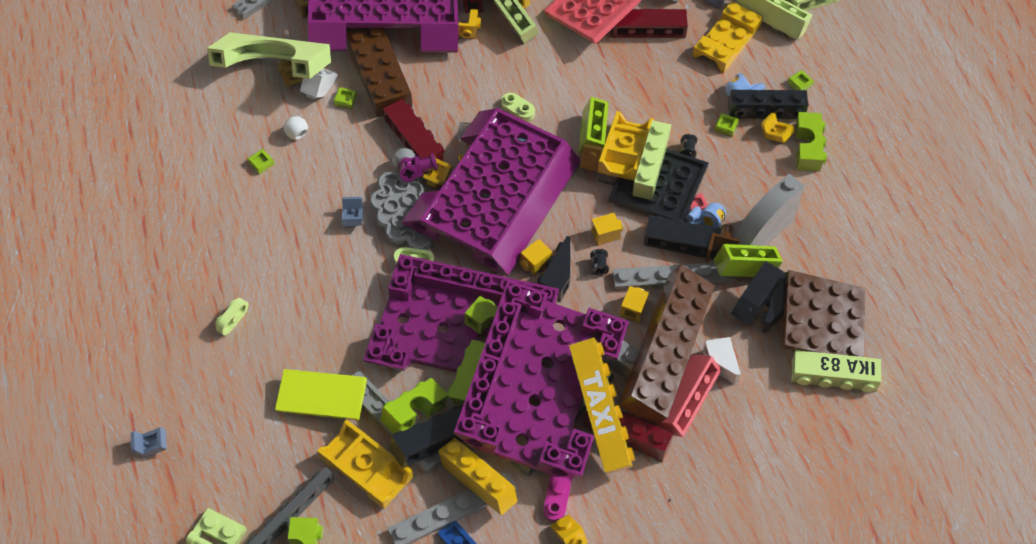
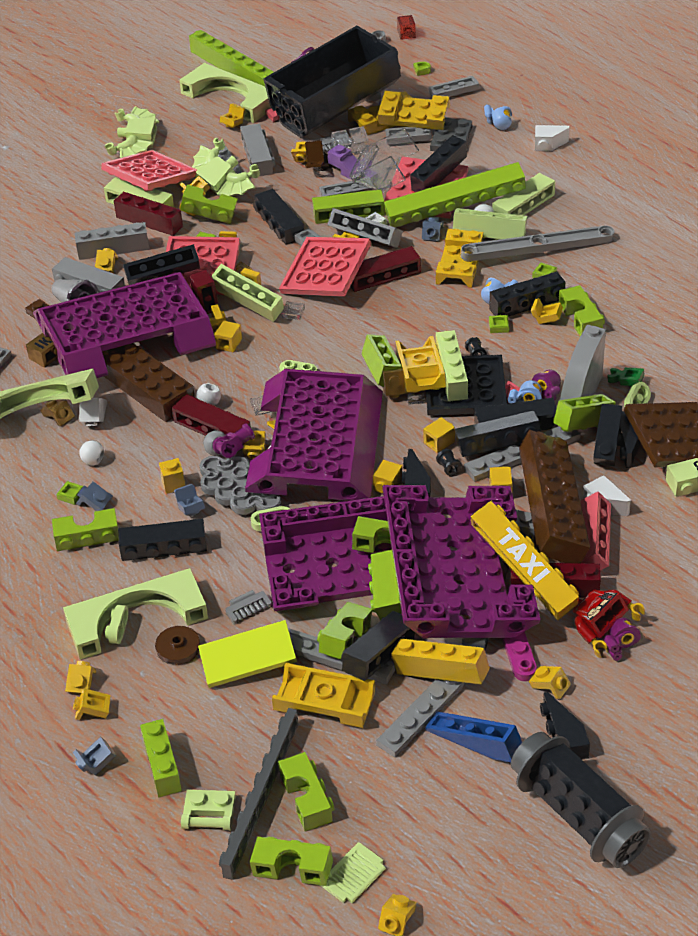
camera: 20 degrees left, 15 degrees down
(173, 388) = (91, 703): none -> yellow bracket
(176, 356) = (79, 677): none -> yellow bracket
(196, 480) = (160, 758): none -> lime arch
(211, 300) = (174, 591): none -> yellowish green arch
(266, 212) = (101, 530): none -> lime arch
(274, 365) = (177, 645): none -> reddish brown plate
(276, 175) = (94, 496): none -> sand blue bracket
(310, 244) = (162, 539): none -> black brick
(345, 98) = (126, 416): lime tile -> none
(348, 336) = (245, 602): none -> light grey piece
(350, 180) = (171, 475): none -> yellow brick
(423, 105) = (209, 393): none -> white piece
(473, 46) = (228, 336): none -> yellow brick
(546, 38) = (293, 310): none -> clear tile
(647, 484) = (599, 612): none -> red torso
(657, 250) = (495, 433): none -> black brick
(658, 514) = (620, 636): none -> magenta piece
(718, 240) = (550, 403): reddish brown bracket -> none
(735, 211) = (549, 382): none -> magenta piece
(808, 262) = (638, 394): none -> yellowish green plate
(816, 233) = (627, 377): none -> green plate
(822, 49) = (526, 244): none -> light grey beam

